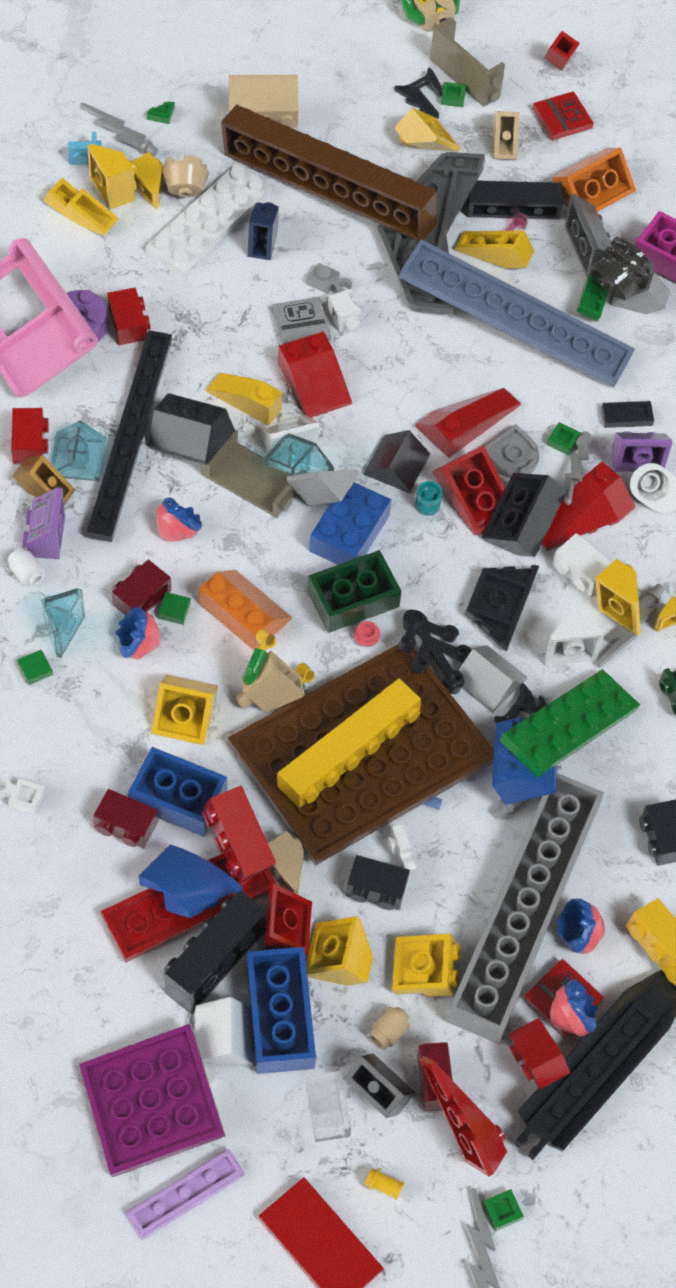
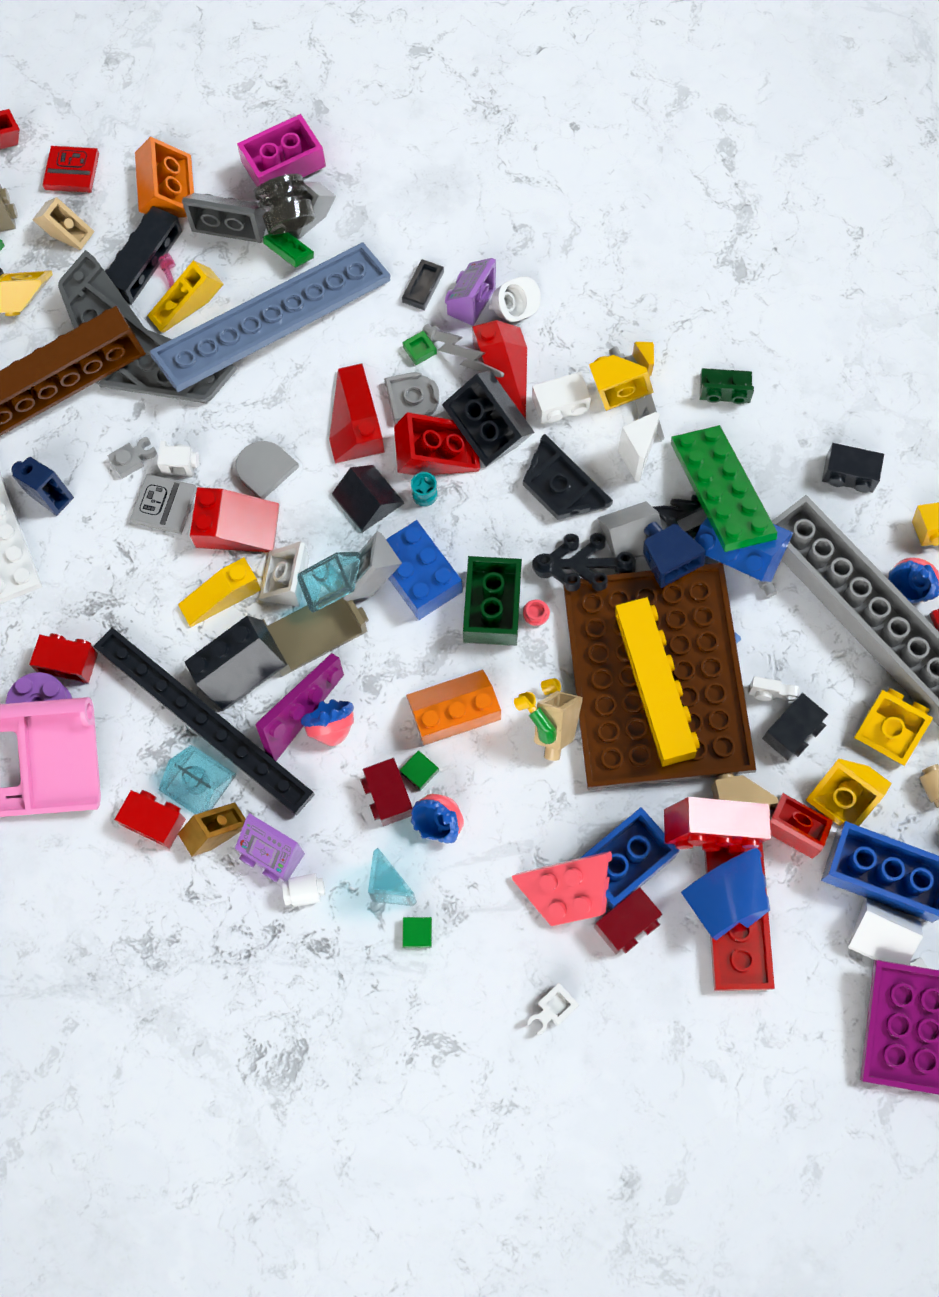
camera: 55 degrees left, 10 degrees up
(126, 755) = (568, 889): none -> coral wing
(154, 484) = (284, 720): none -> magenta wing
(184, 709) = (536, 811): yellow slope -> none
(214, 951) = (810, 903): black brick -> none
(377, 376) = (264, 467): none -> light grey tile
(477, 705) = (671, 553): none -> dark blue torso

